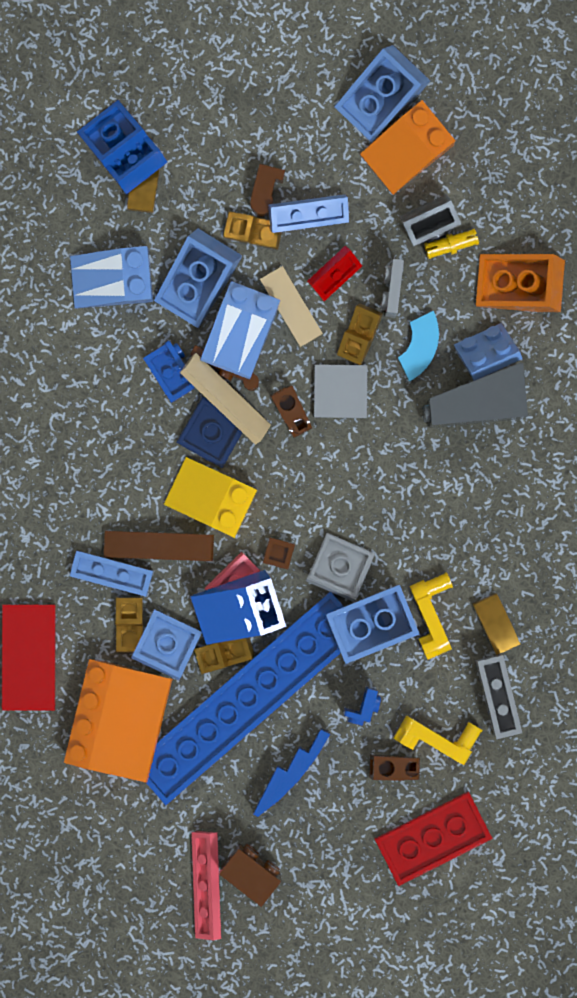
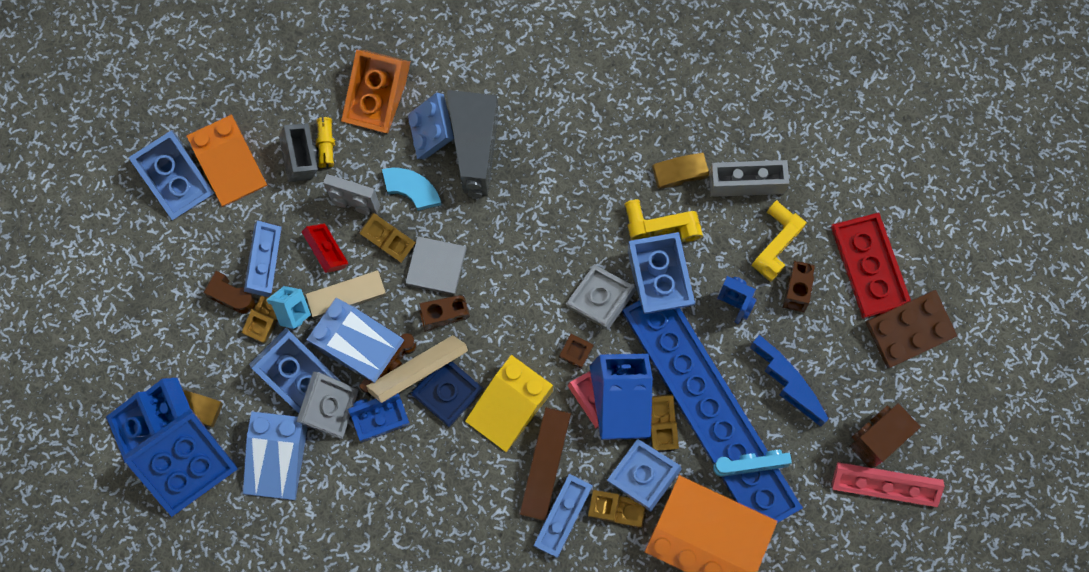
camera: 75 degrees left, 15 degrees down
(83, 190) = (180, 462): none -> blue plate
(170, 318) = (327, 405): none -> light grey tile
(196, 745) = (750, 463): none -> medium azure plate
(262, 254) = (289, 307): none -> medium azure brick
(371, 888) = (911, 328): none -> reddish brown plate

